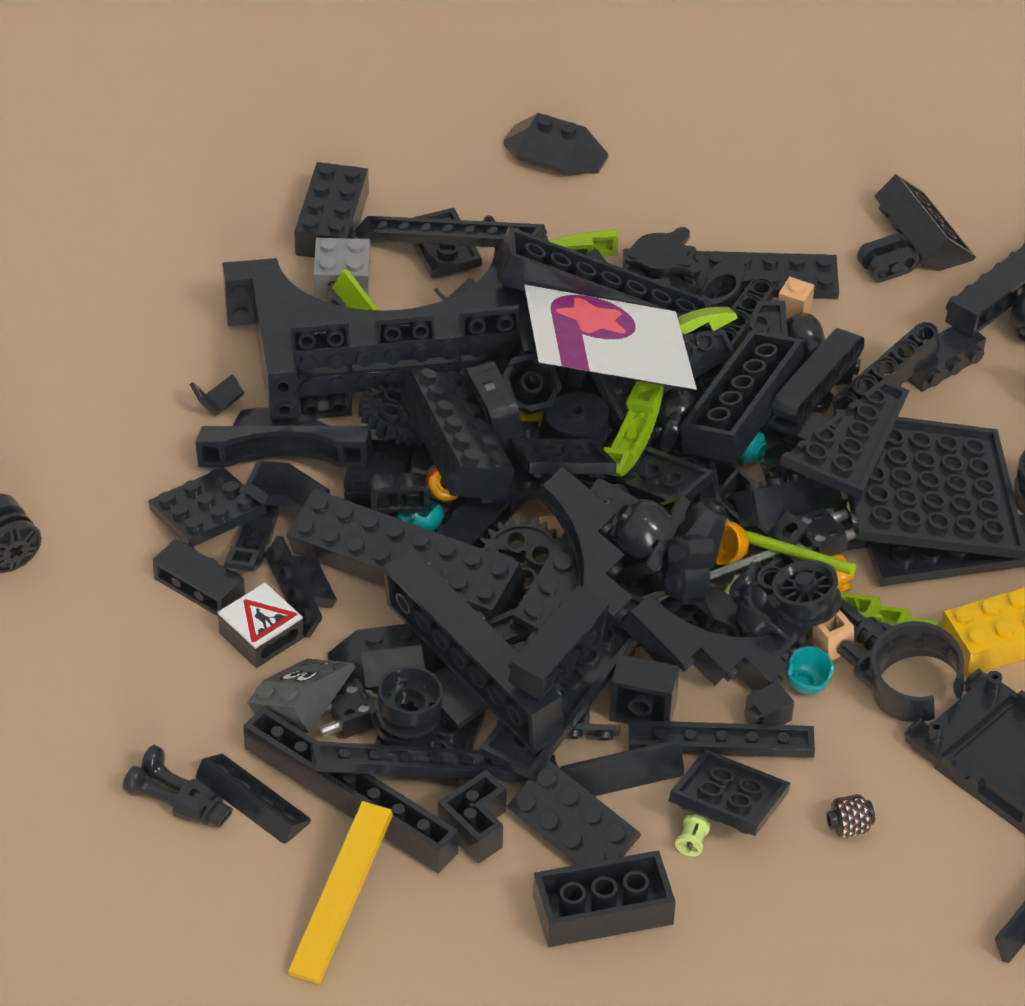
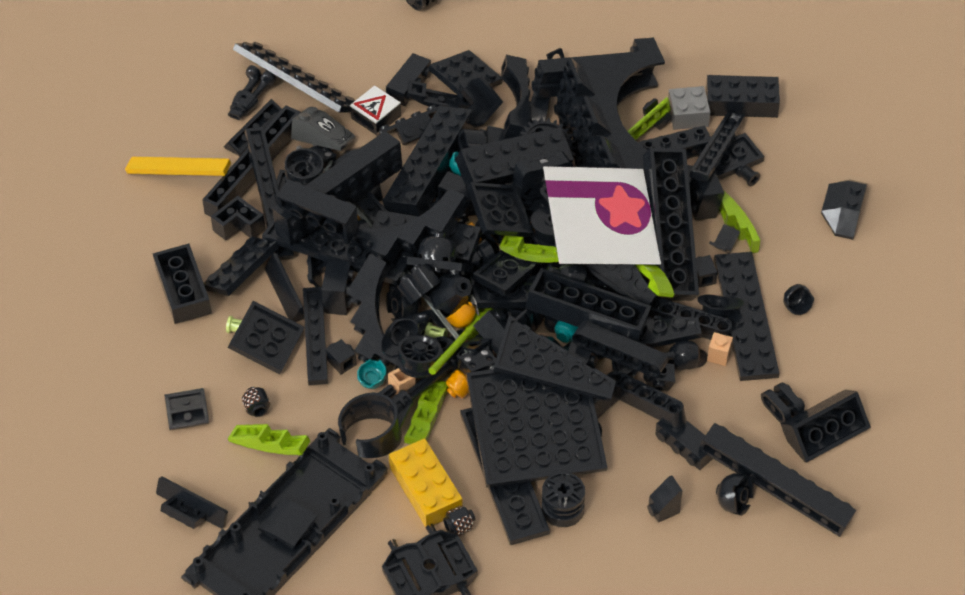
camera: 85 degrees right, 5 degrees up
(166, 716) = (295, 76): none -> black plate
(410, 279) = (692, 140): none -> black brick
(664, 254) = (745, 269): black tile -> none
(716, 216) = (798, 299): none -> black hair
(851, 914) = (186, 409): none -> black slope
(923, 805) = (264, 439): none -> lime slope

